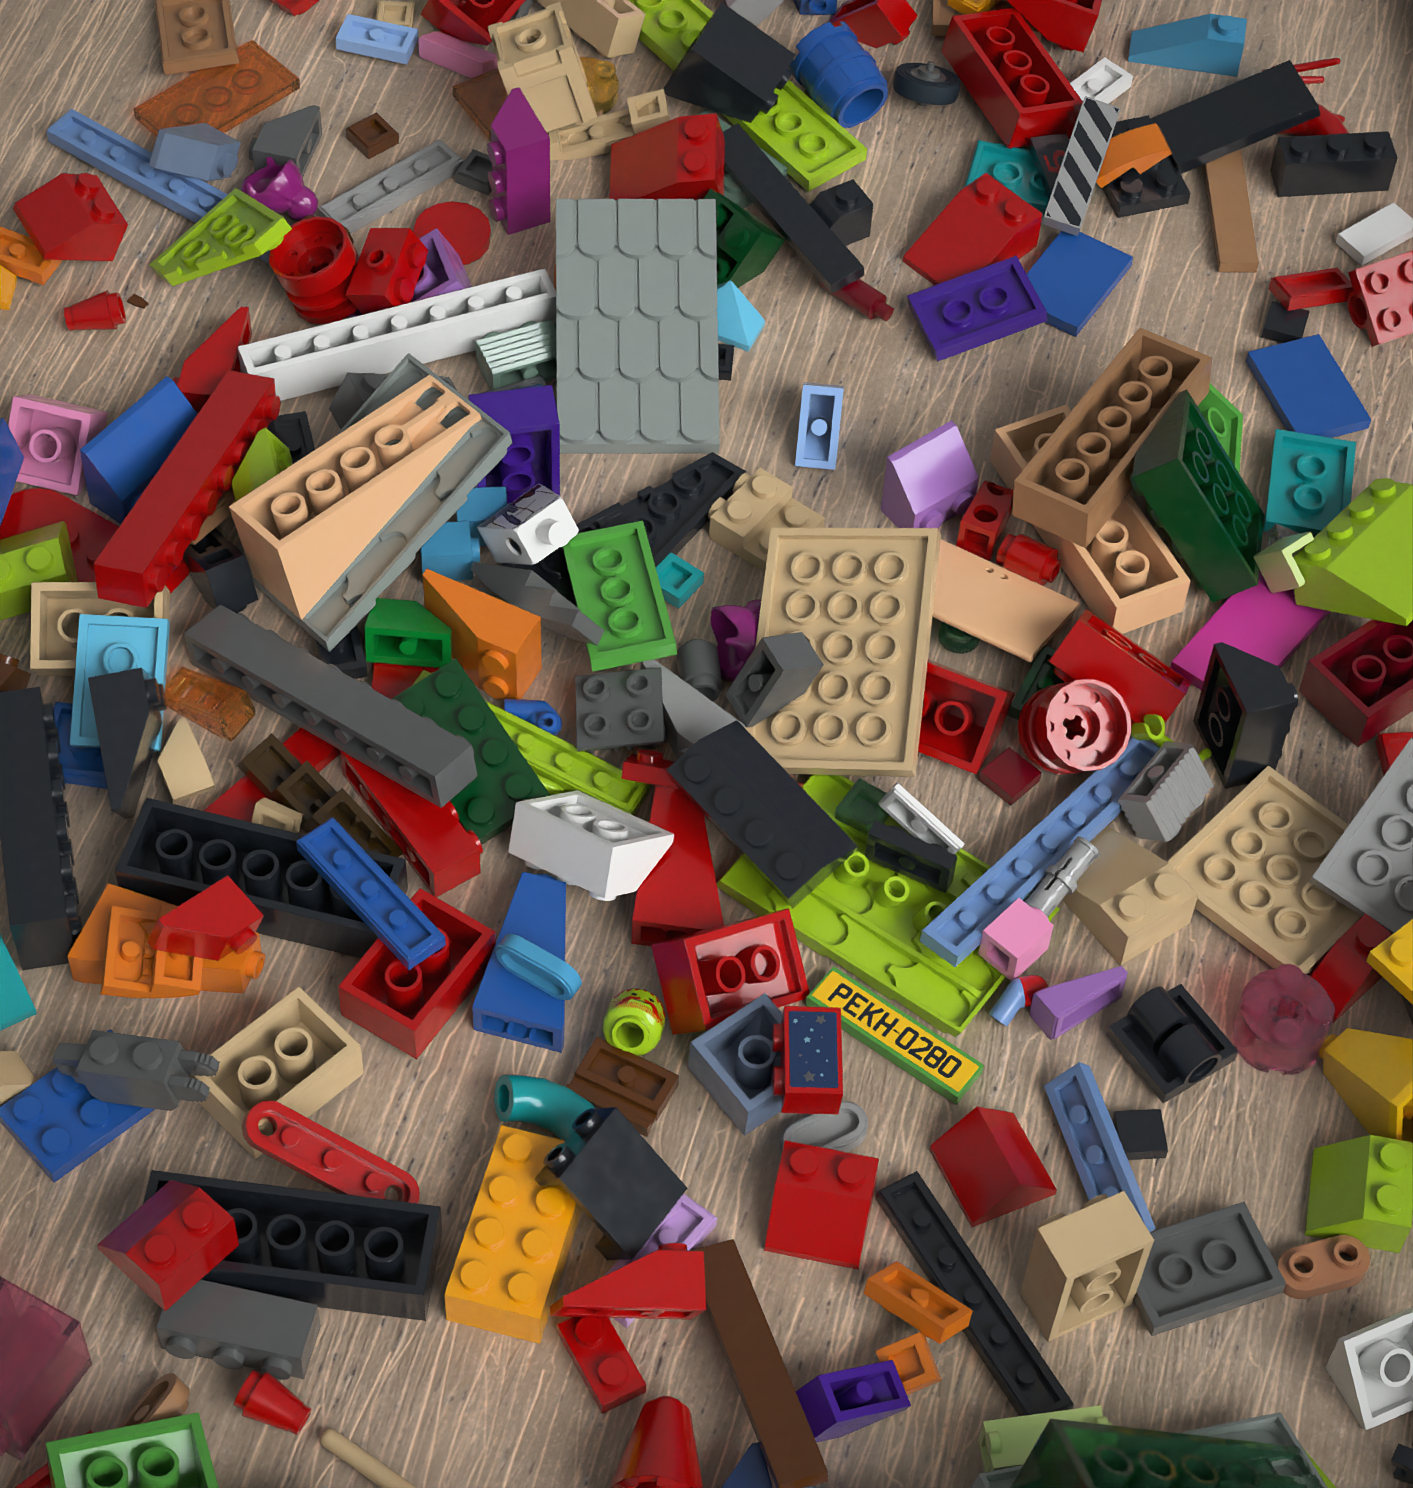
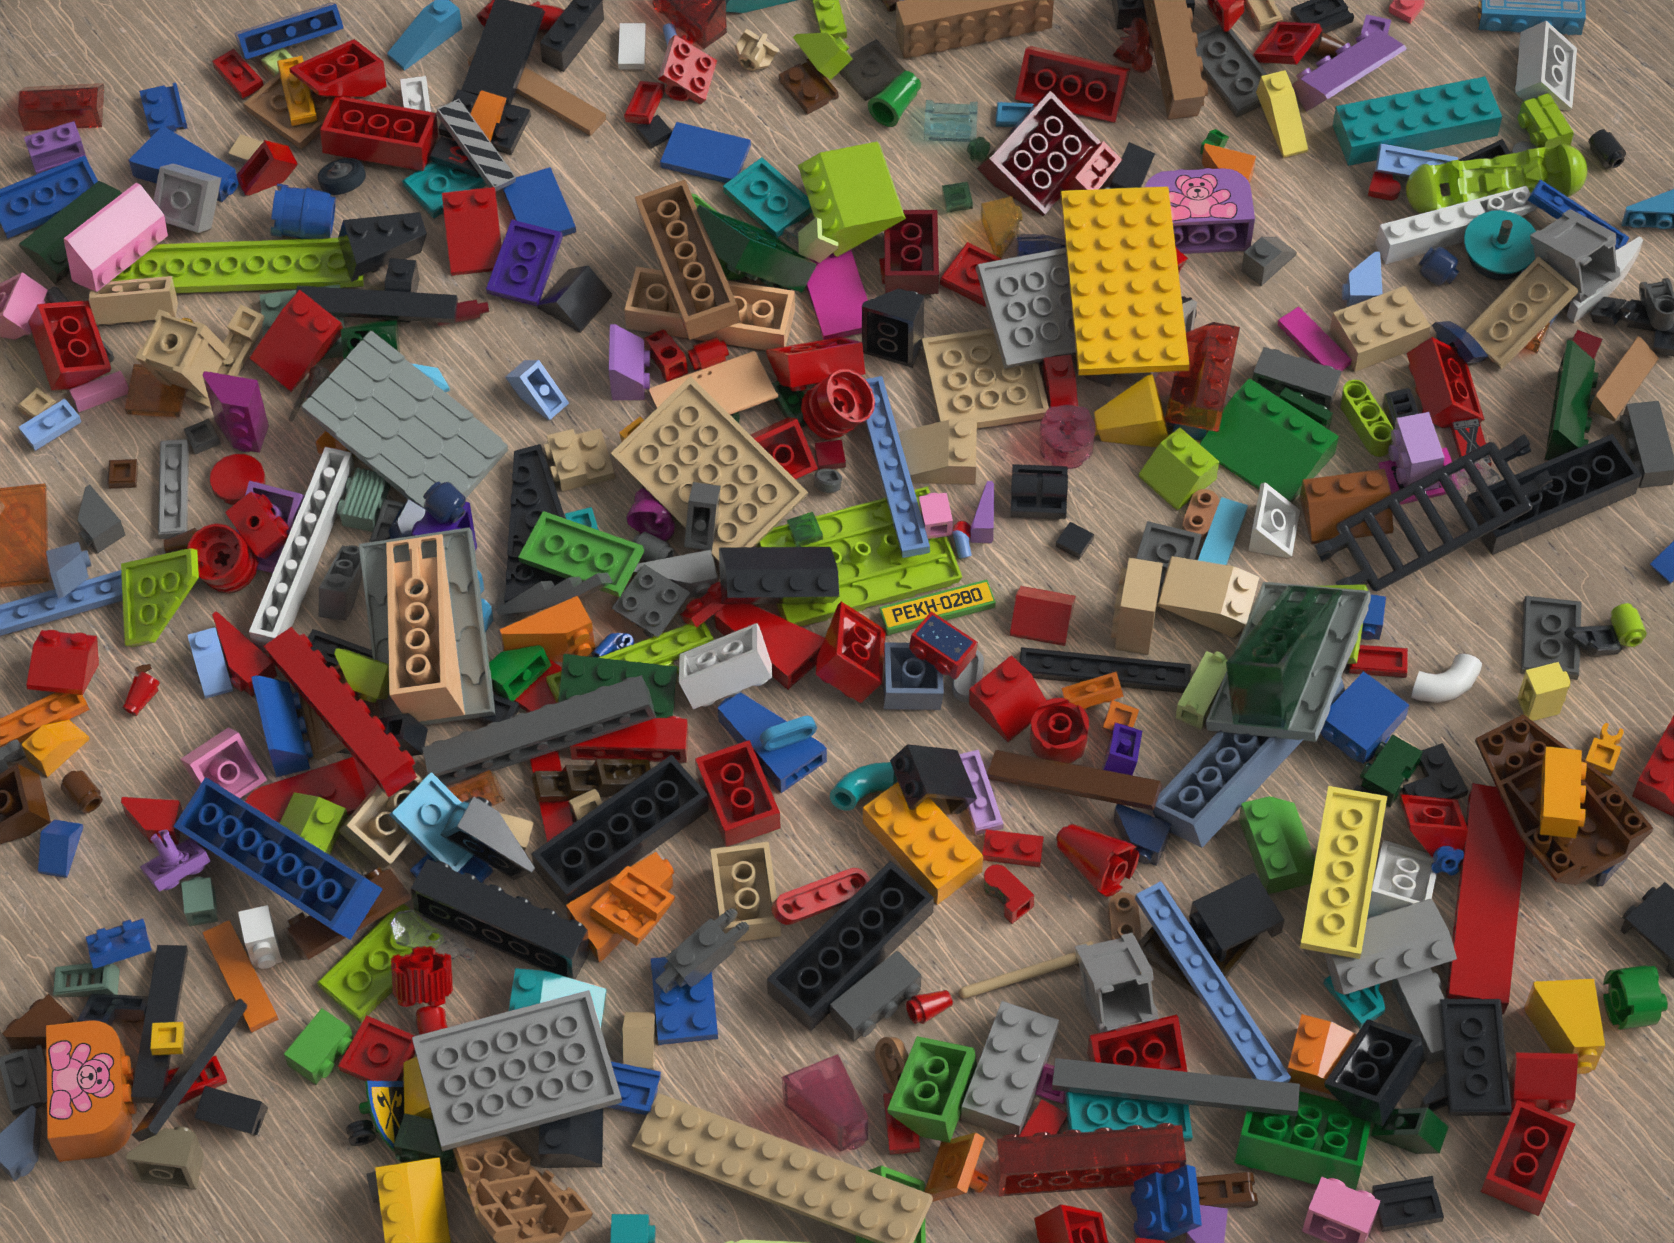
camera: 50 degrees left, 5 degrees up
(171, 1241) = (819, 989): red slope -> none
(179, 339) = (210, 662): none -> light blue slope
(209, 924) = (644, 864): red slope -> none
(281, 189) = (129, 544): magenta piece -> none
(371, 893) = (681, 781): blue tile -> none
(525, 1396) = (1009, 891): none -> red leg
(528, 392) = (444, 502): none -> dark blue head
(534, 522) = (503, 565): white torso -> none
(624, 1081) = (872, 743): reddish brown plate -> none
(634, 1021) = (843, 714): lime head -> none
(653, 1287) = (997, 800): red slope -> none
(731, 68) = (252, 262): black slope -> none
(817, 1297) = (1059, 731): none -> red brick
(876, 158) = (374, 240): none -> black wedge
(911, 856) = (849, 529): black plate -> none
(918, 819) = (836, 510): white slope -> none
(968, 795) = (828, 480): none -> dark grey tile
(982, 390) = (576, 298): none -> black slope
(1063, 876) = (914, 455): light grey pin -> none
(1093, 1138) = (1070, 563): medium blue plate -> none
(1154, 730) = (868, 372): lime piece -> none
(1166, 792) = (902, 392): light grey brick -> none
(1194, 1349) = (1209, 594): none -> tan slope
(1287, 1322) = (1223, 532): none -> medium azure tile

